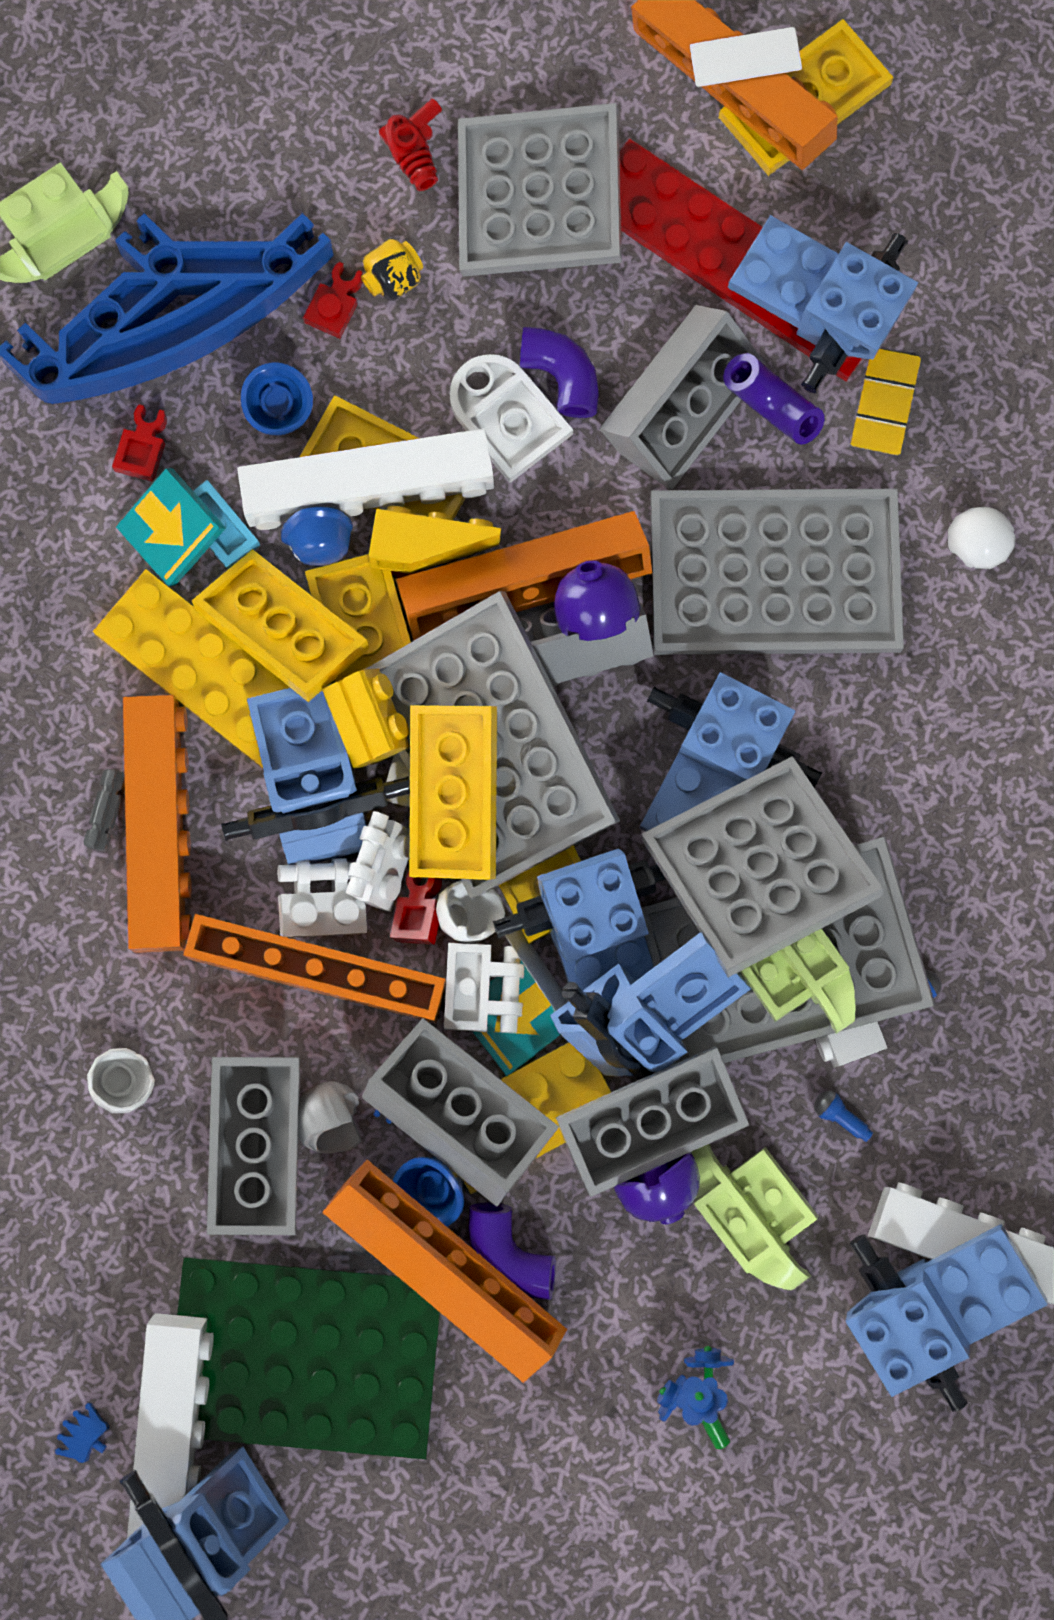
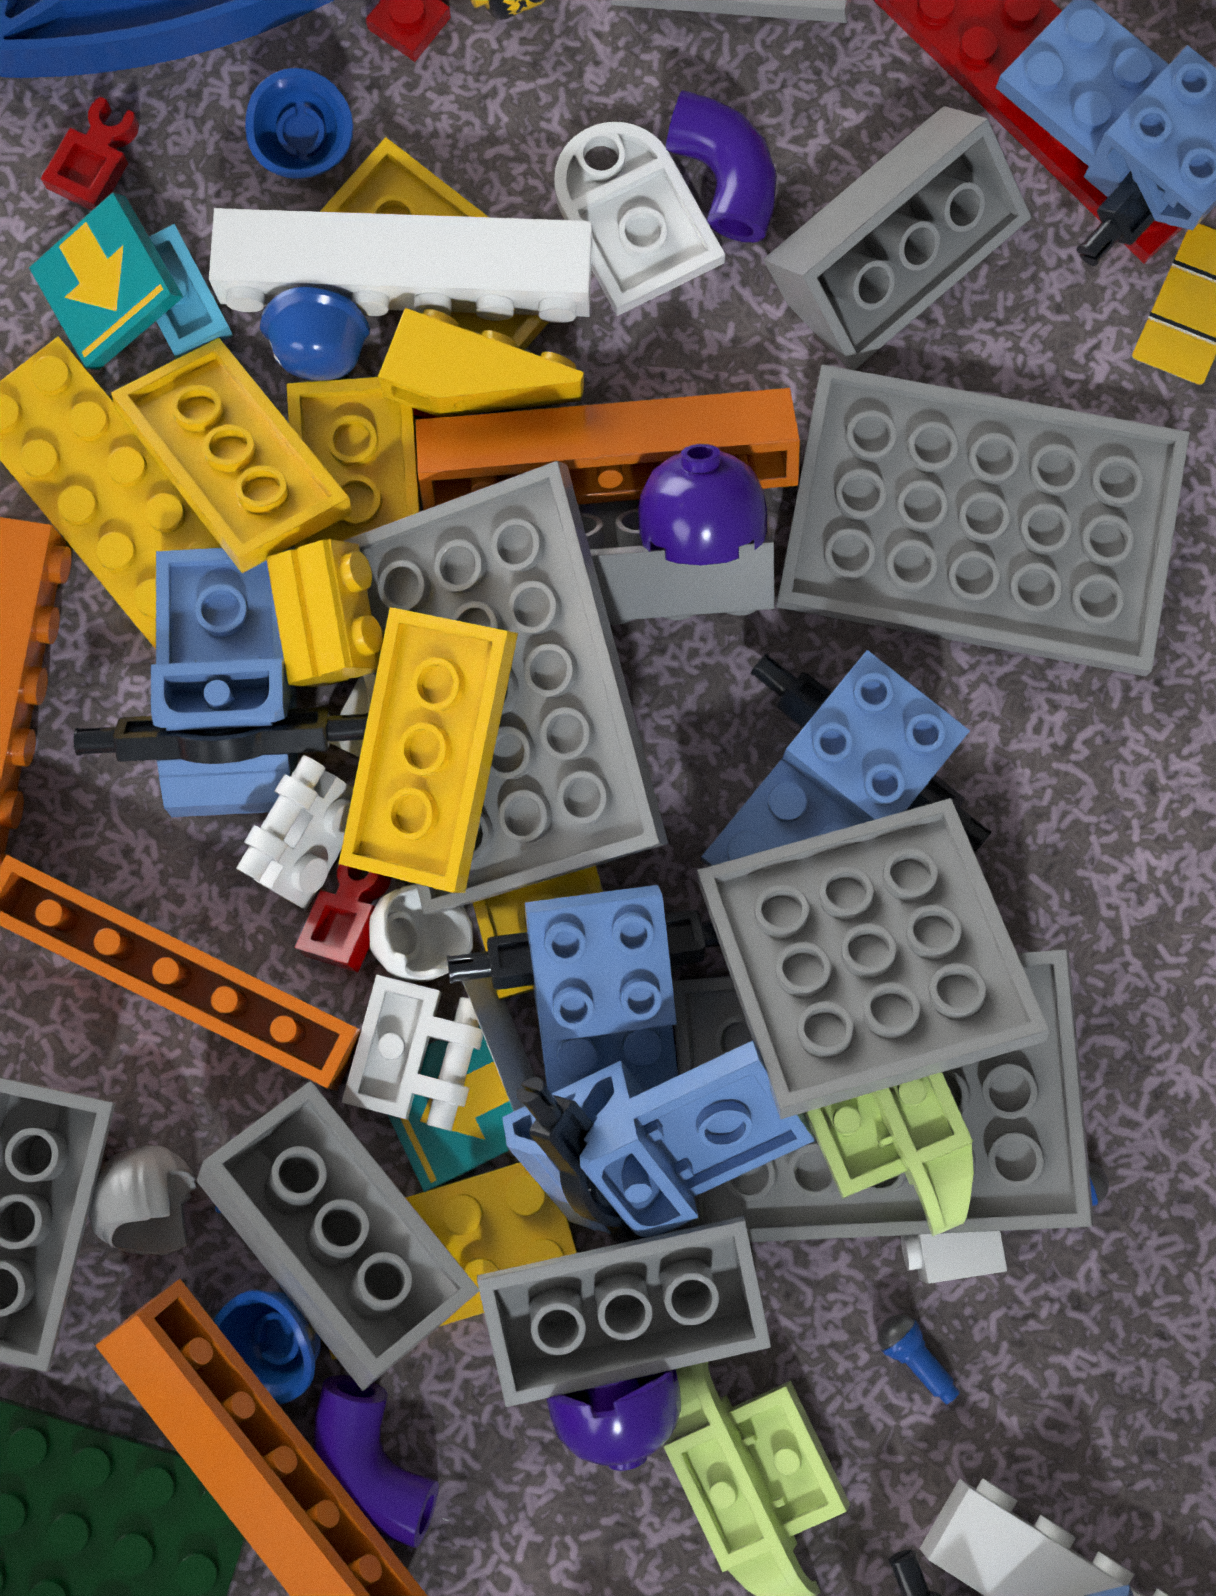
camera: 15 degrees right, 0 degrees up
(319, 913) = (200, 890): white plate -> none
(773, 398) = (1030, 264): dark purple cylinder -> none

